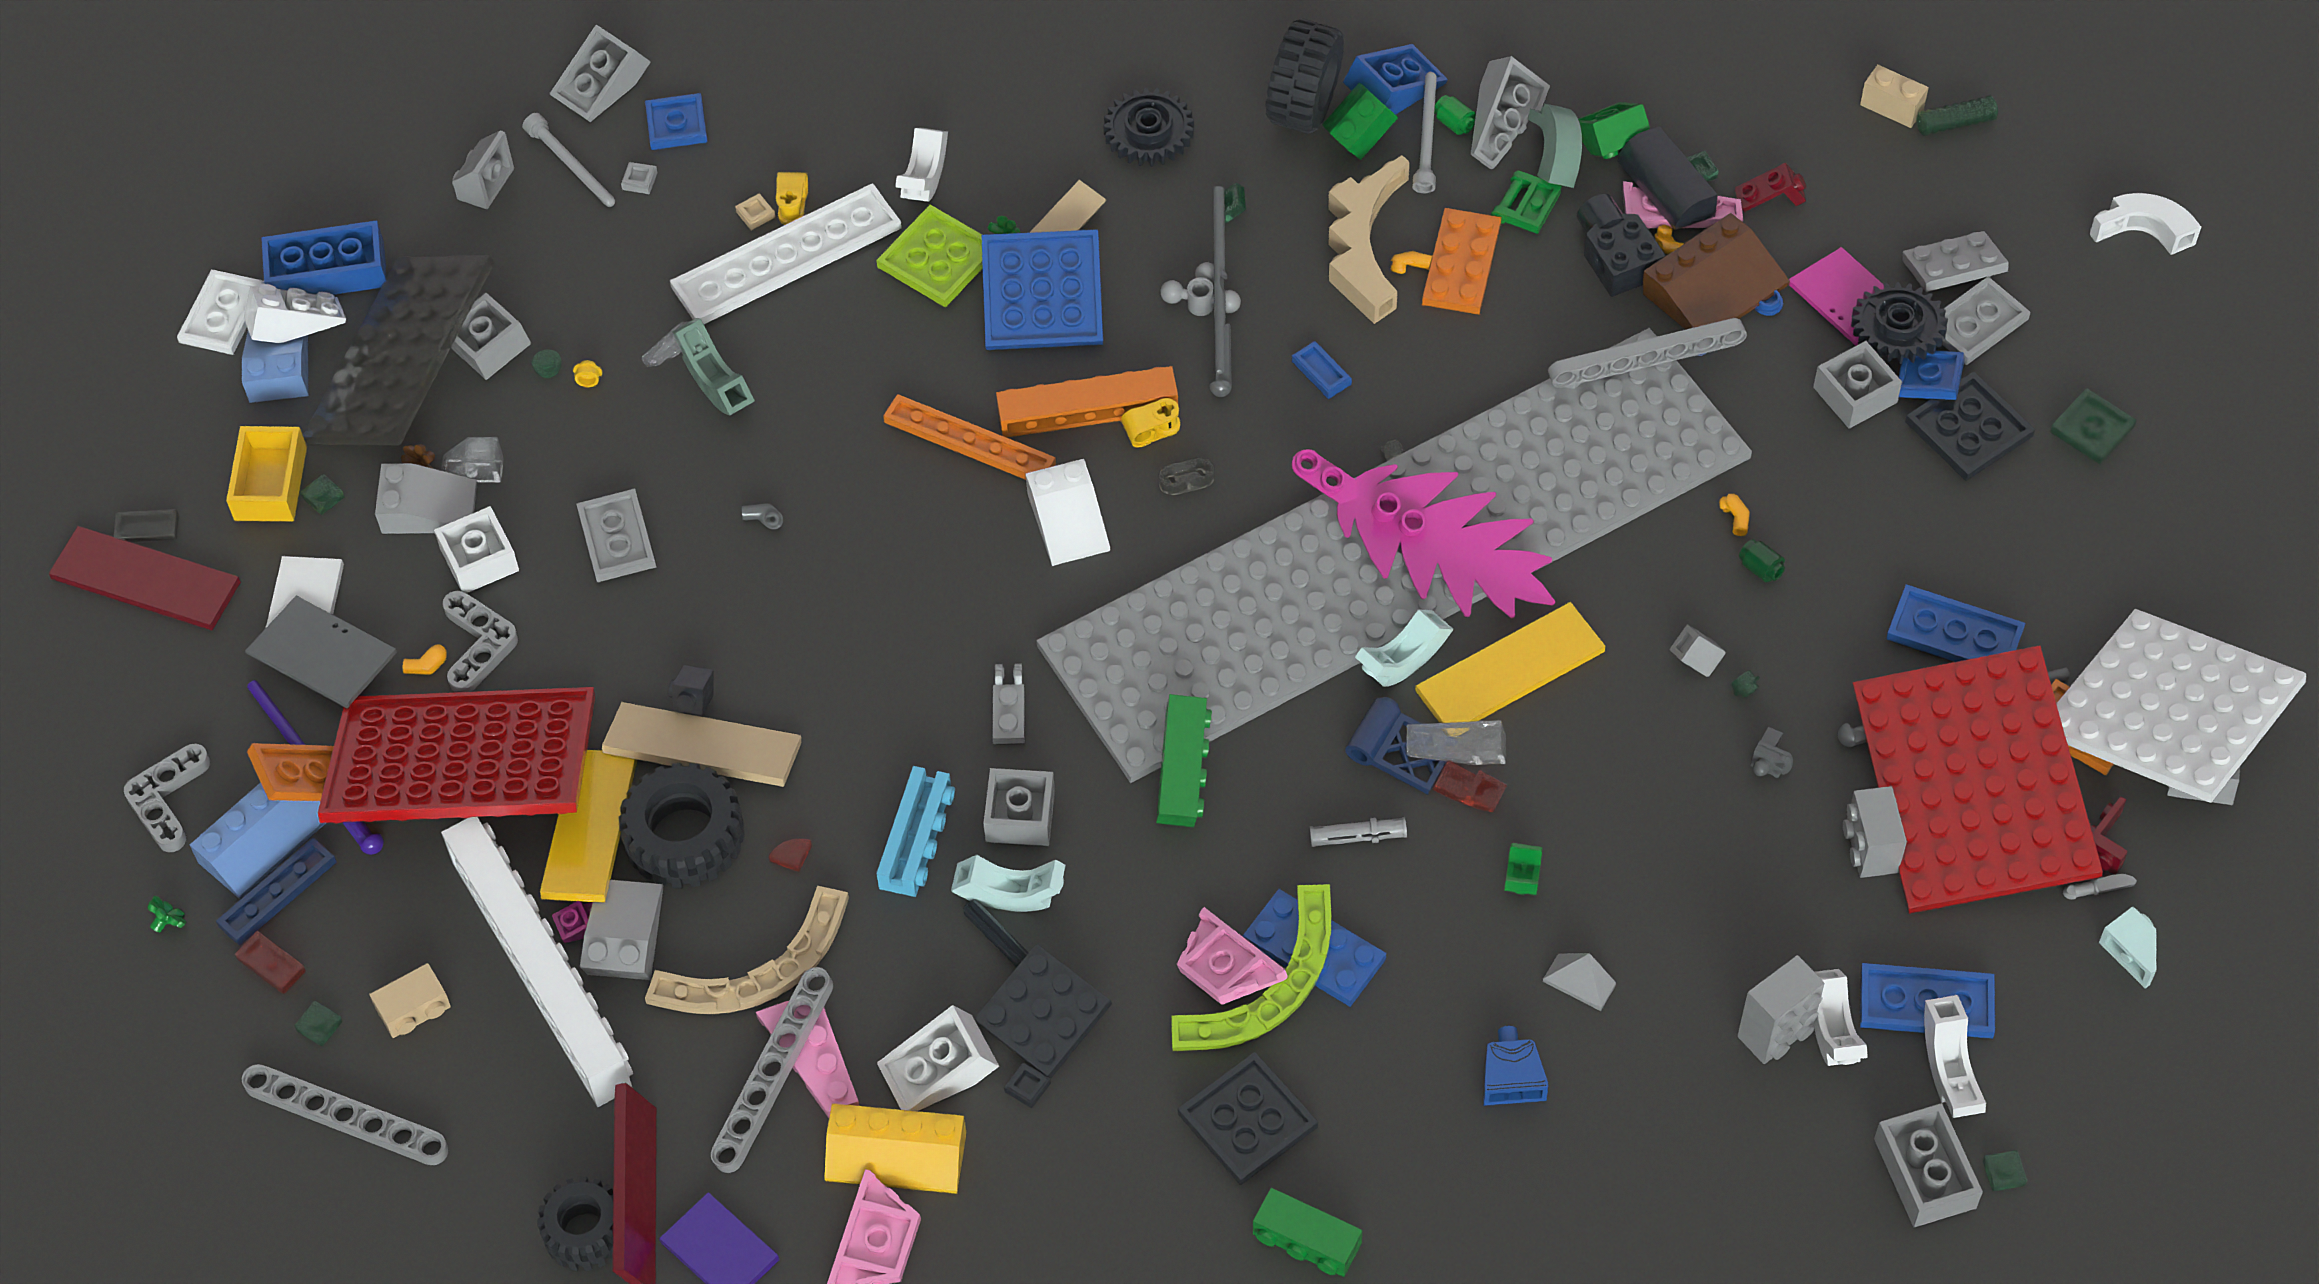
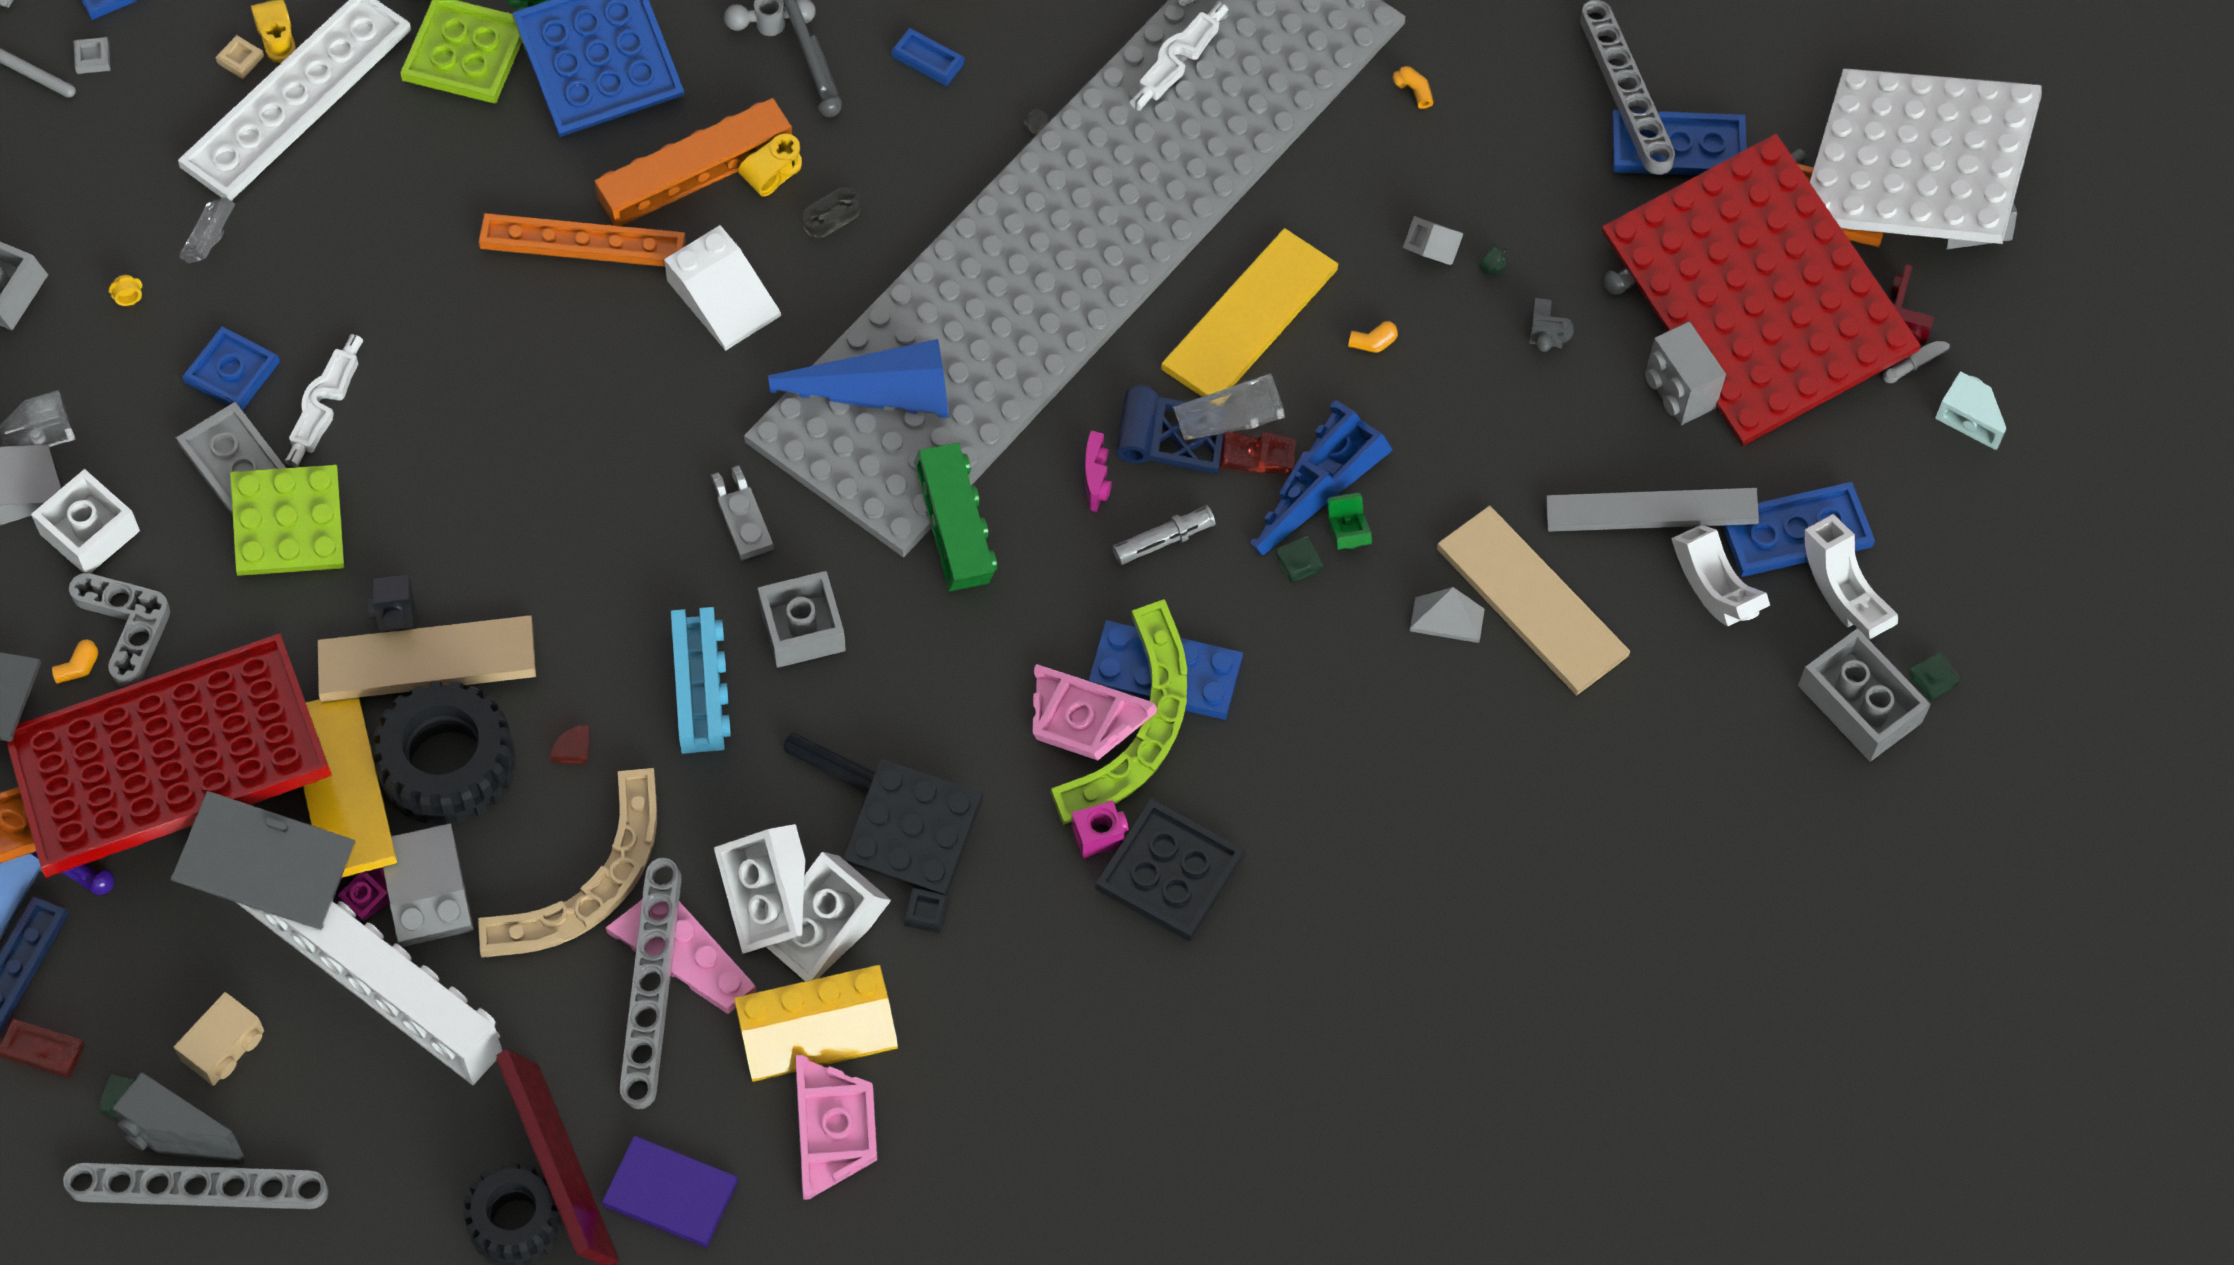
camera: 25 degrees left, 5 degrees up
(340, 1057) = (171, 1125): none -> dark grey slope
(482, 860) = (259, 864): none -> dark grey container
(547, 363) = (74, 291): clear green plate -> none
(636, 597) = (287, 520): none -> lime plate
(644, 461) = (231, 368): none -> blue tile
(695, 519) = (316, 416): none -> white piece
(717, 381) = (280, 258): sand green arch -> none
(763, 512) = (390, 386): dark grey arm -> none
(896, 1017) = (764, 886): none -> white slope
(1008, 888) = (824, 709): light aqua arch -> none
(1179, 629) = (896, 377): none -> blue wedge
(1192, 1052) = (1092, 842): none -> dark pink brick
(1307, 1233) = (1279, 968): green brick -> none
(1319, 759) = (1096, 482): none -> dark pink slope
(1407, 651) = (1140, 327): light aqua arch -> none
(1431, 535) = (1117, 200): dark pink plant -> none
(1469, 889) = (1299, 559): none -> clear green plate
(1513, 1070) = (1420, 732): blue torso -> none
(1536, 813) = (1338, 458): none -> blue wedge
(1547, 420) = (1169, 67): none -> white piece
(1613, 721) = (1376, 340): none -> light orange arm
(1663, 989) = (1533, 600): none -> tan tile
(1762, 560) = (1461, 127): dark green brick -> none
(1781, 1010) = (1668, 584): light grey brick -> none
(1806, 942) = (1652, 509): none -> light grey tile
(1921, 577) = (1627, 98): none -> light grey beam

